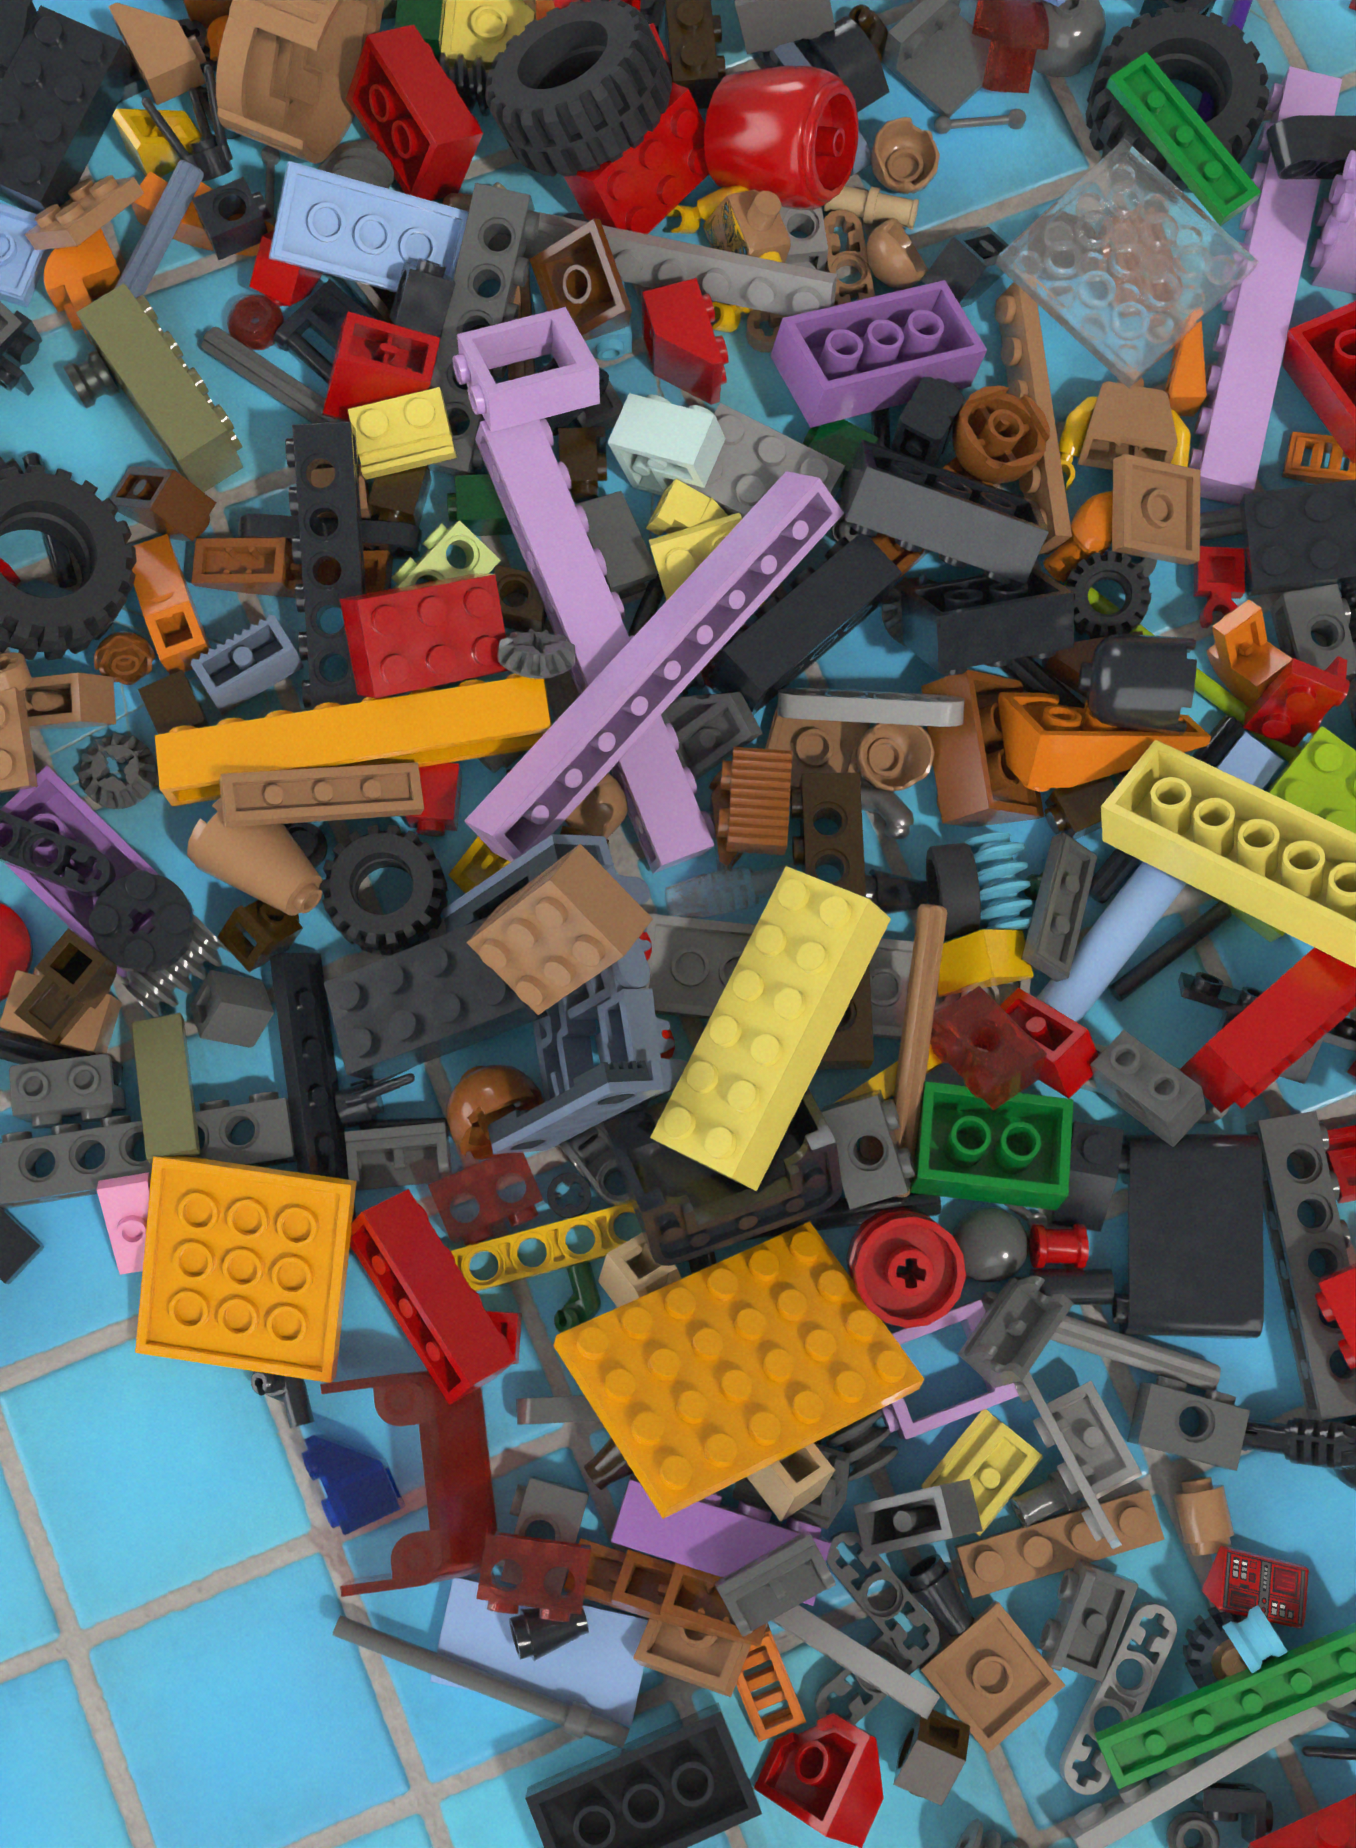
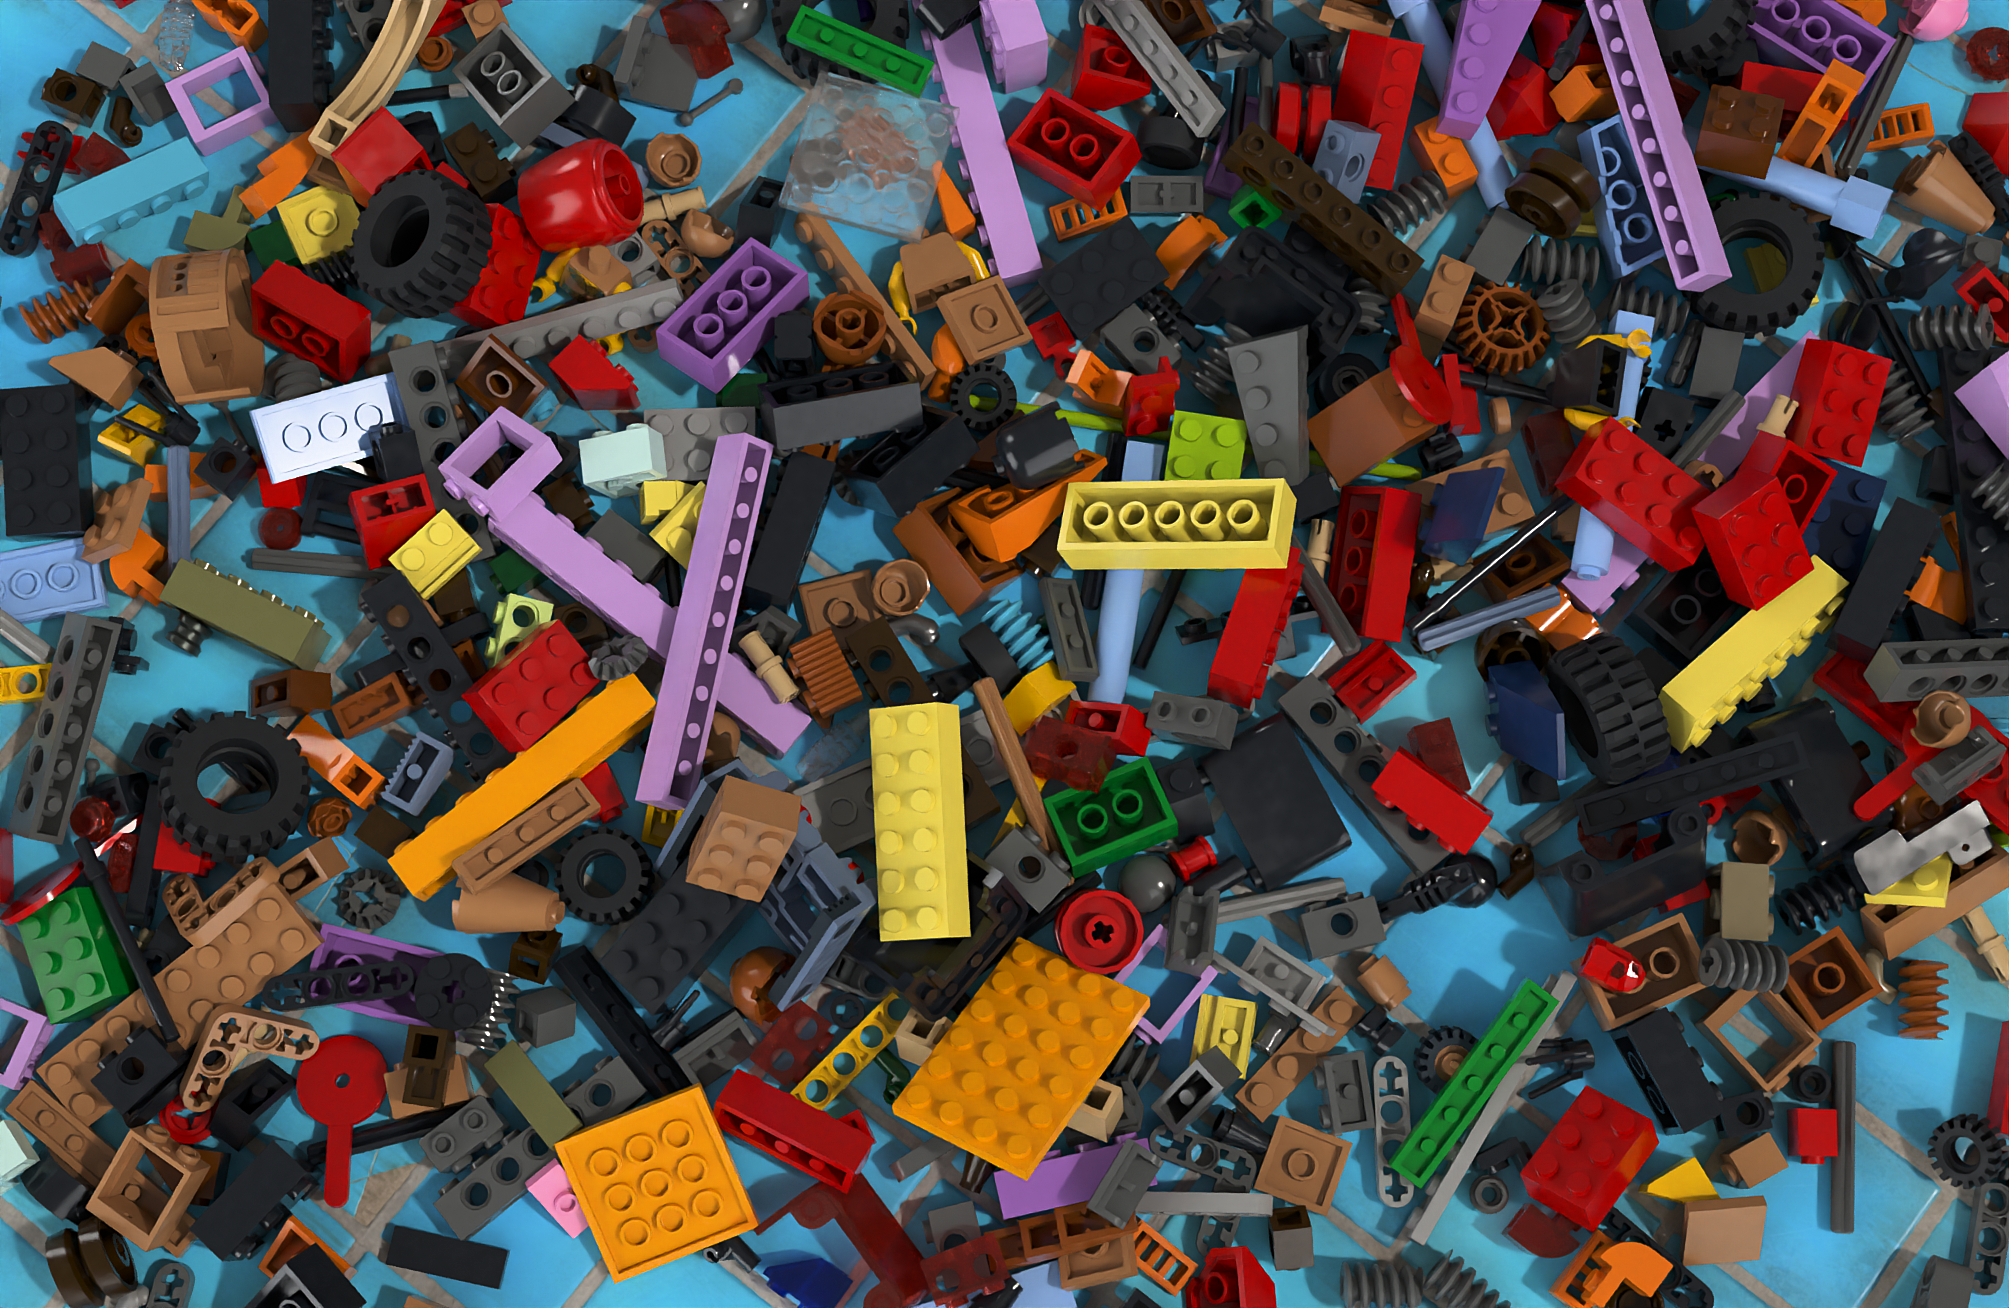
camera: 25 degrees left, 0 degrees up
(699, 760) = (769, 667): none -> tan pin
(871, 707) = (865, 565): light grey beam -> none
(1168, 1570) = (1386, 1036): none -> black wheel
(1249, 1579) = (1442, 1007): slope -> none
(1255, 1639) = (1453, 1041): medium azure wheel -> none

